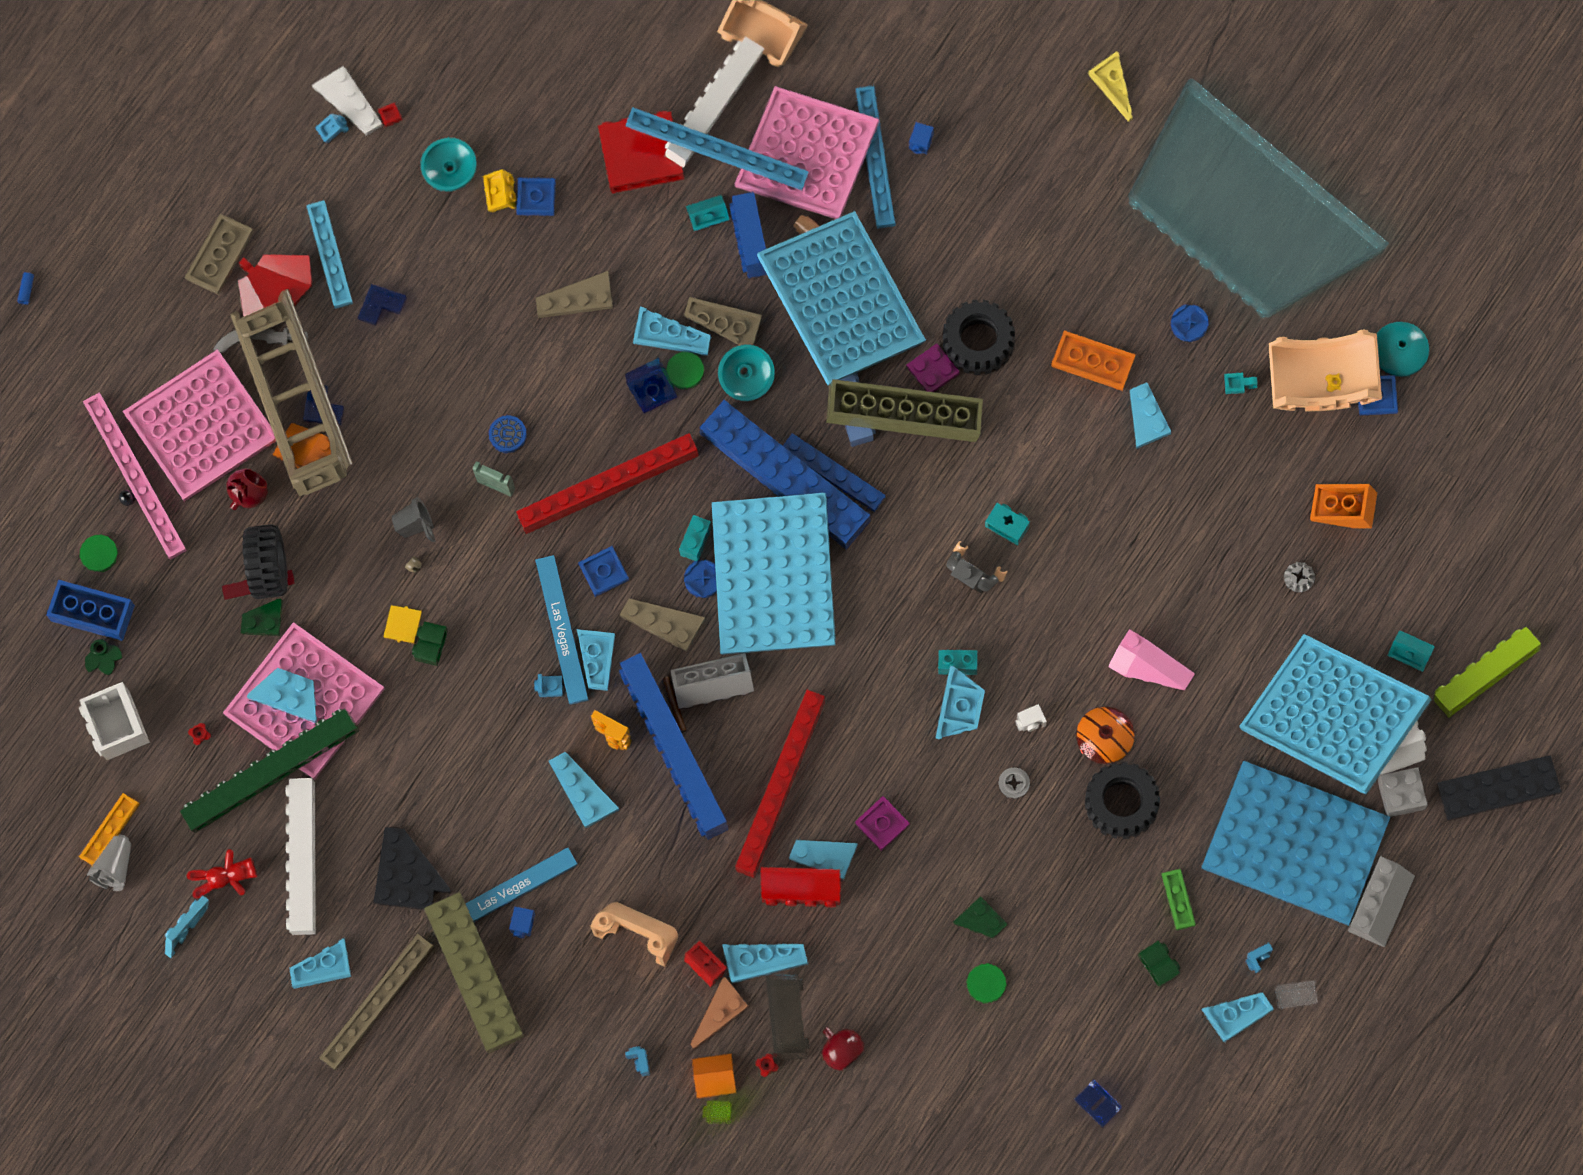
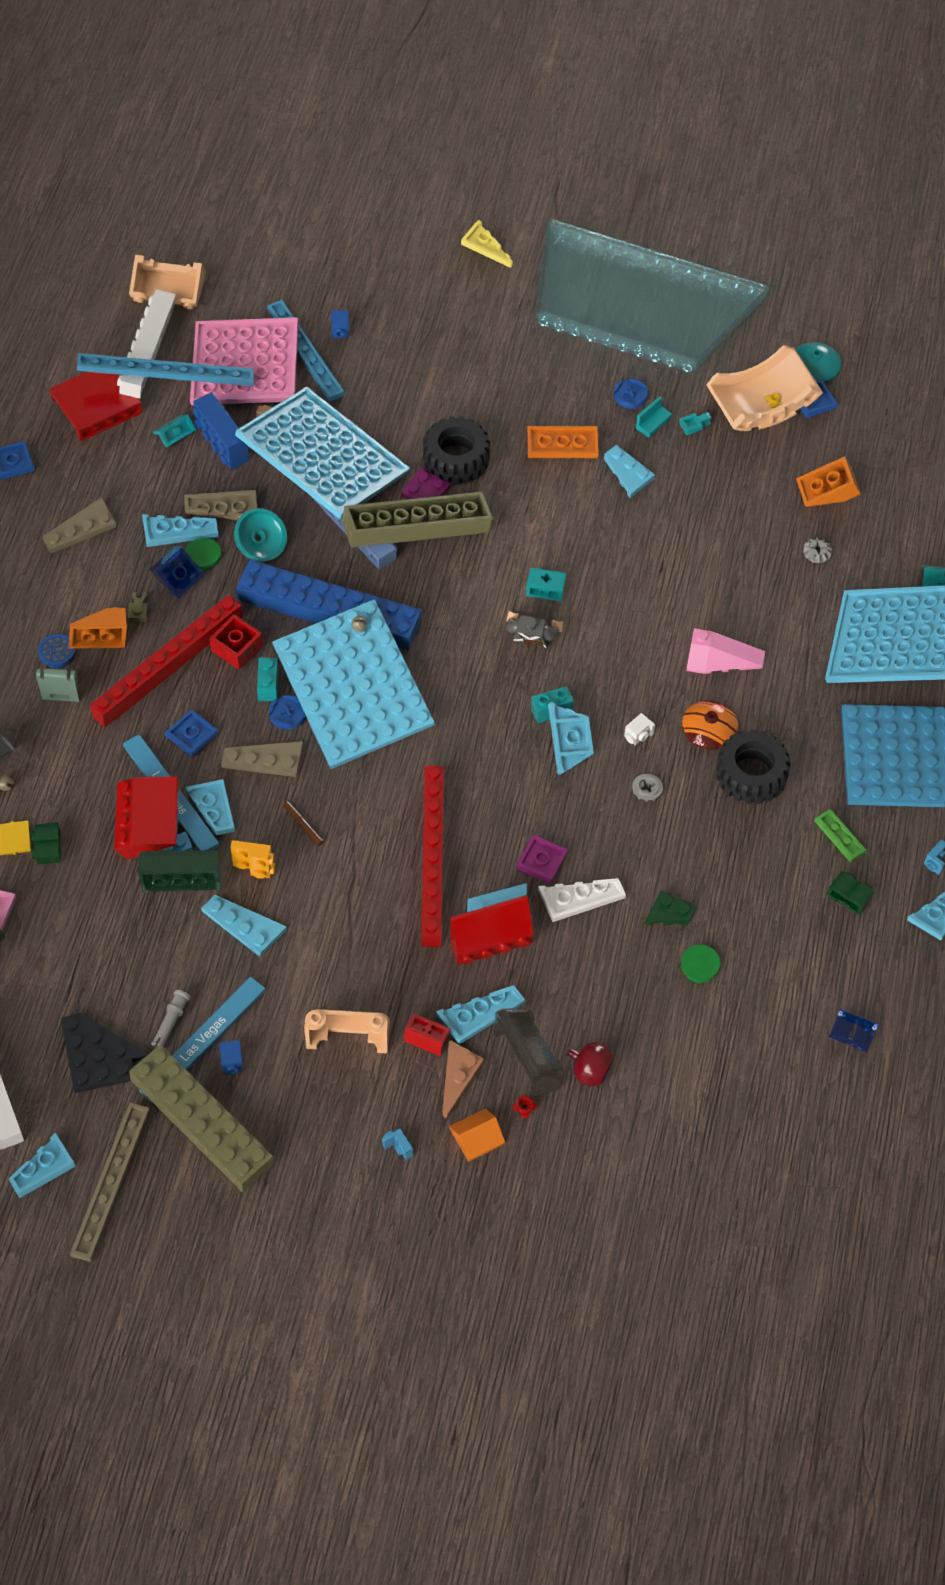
camera: 30 degrees left, 15 degrees down
(488, 856) = (174, 1010): none -> light grey pin
(528, 649) = (146, 815): none -> red slope
(539, 718) = (179, 870): none -> clear green brick
(555, 431) = (99, 630): none -> orange slope
(600, 413) = (139, 609): none -> olive plate
(674, 747) = (319, 854): blue brick -> none
(679, 487) = (236, 642): none -> red brick
(712, 681) = (332, 791): light grey slope -> none
(718, 1112) = (496, 1164): clear neon green brick -> none
(797, 520) = (358, 626): none -> dark tan hinge
(835, 473) = (400, 596): blue plate -> none
(897, 875) = (577, 898): none -> white wing
(1198, 363) = (652, 418): none -> teal panel

